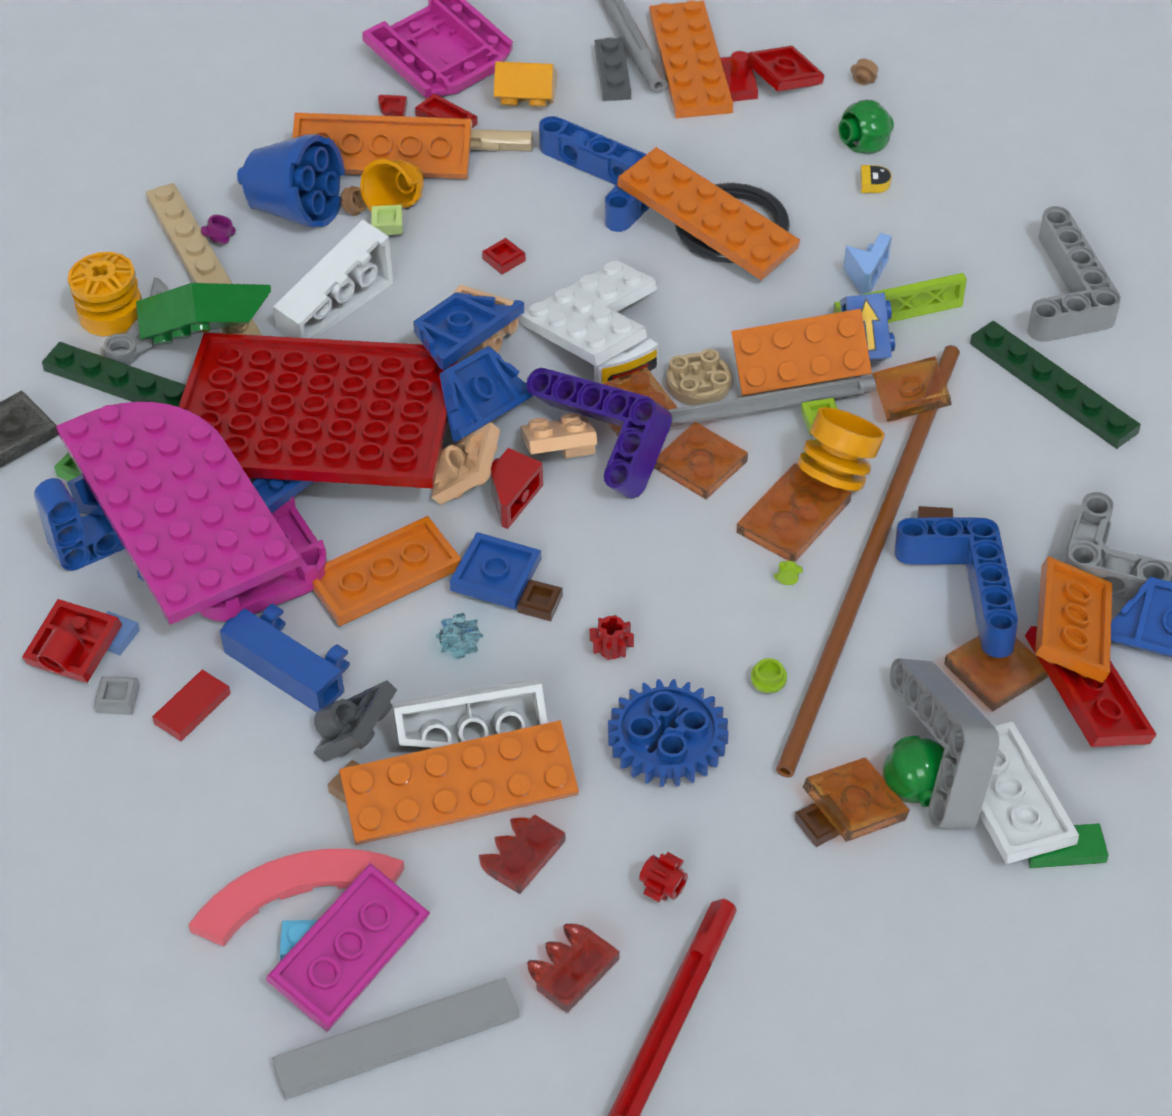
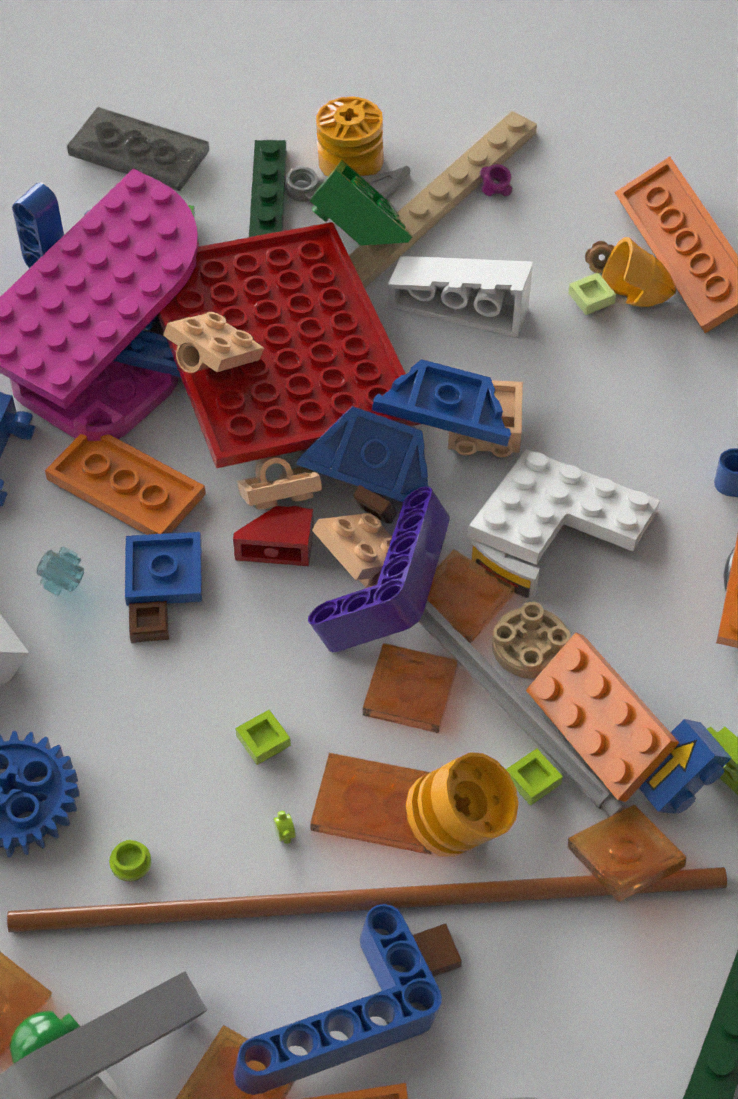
camera: 65 degrees right, 5 degrees up
(295, 180) = (579, 202): blue cone -> none
(302, 435) = (211, 343): none -> light nougat plate
(503, 256) = (608, 406): red tile -> none
(517, 416) = (374, 504): none -> reddish brown tile
(611, 637) = (115, 697): red gear -> none
(700, 558) = (263, 737): none -> lime plate

